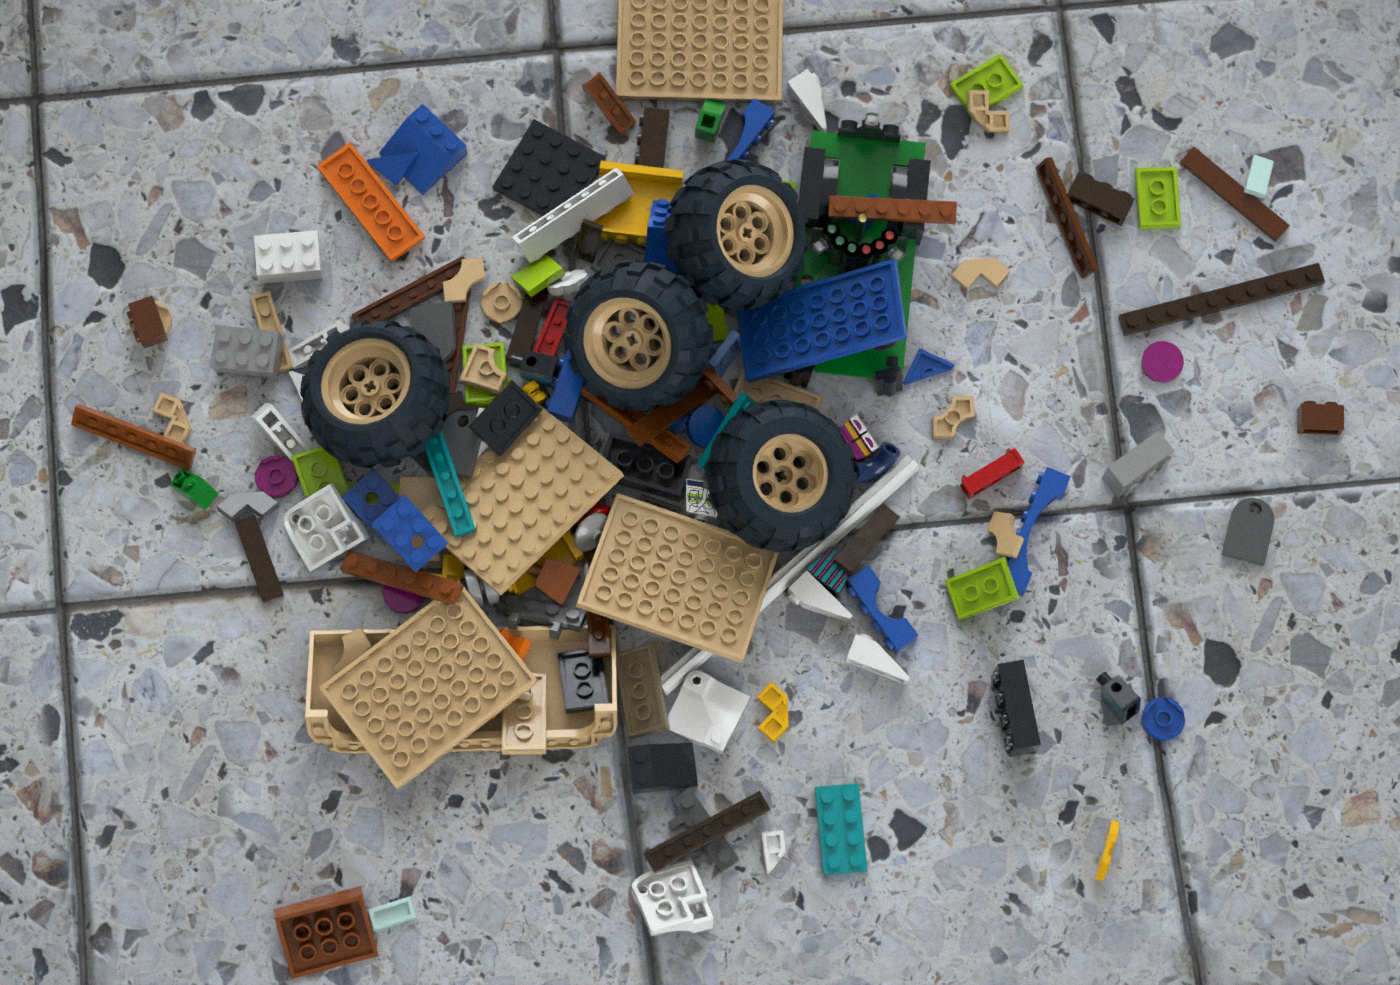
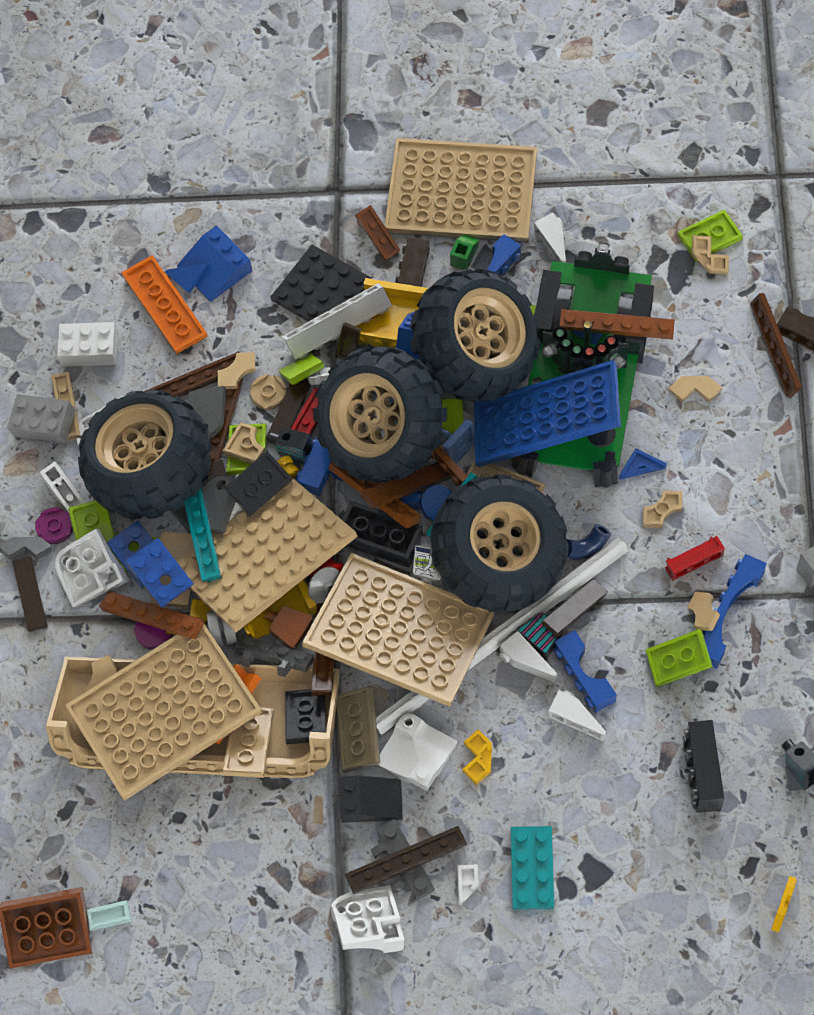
camera: 15 degrees right, 10 degrees down
(859, 439) = (575, 522): hips -> none

